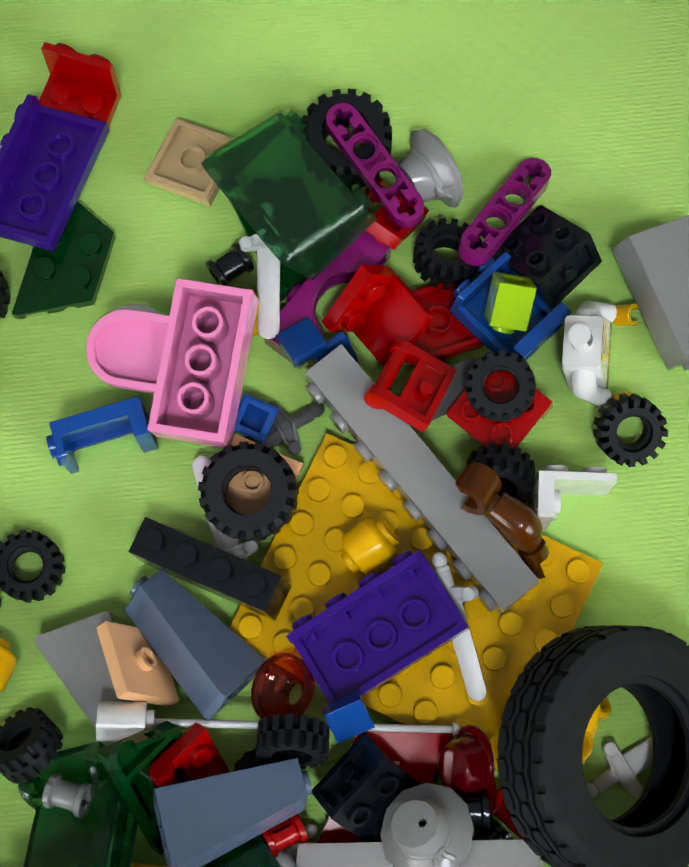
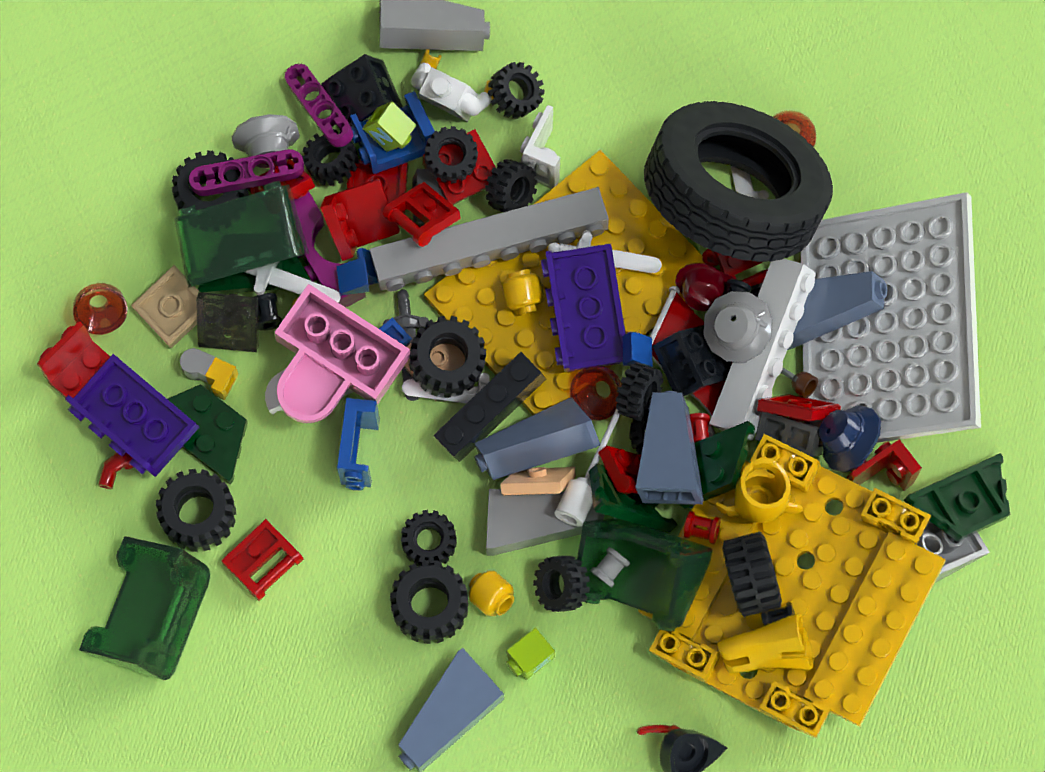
camera: 70 degrees left, 5 degrees down
(133, 237) = (212, 370): none -> leg
(145, 85) = (100, 319): none -> clear red piece
(194, 227) = (229, 316): none -> clear smoke plate
(506, 512) = (545, 184): reddish brown piece -> none

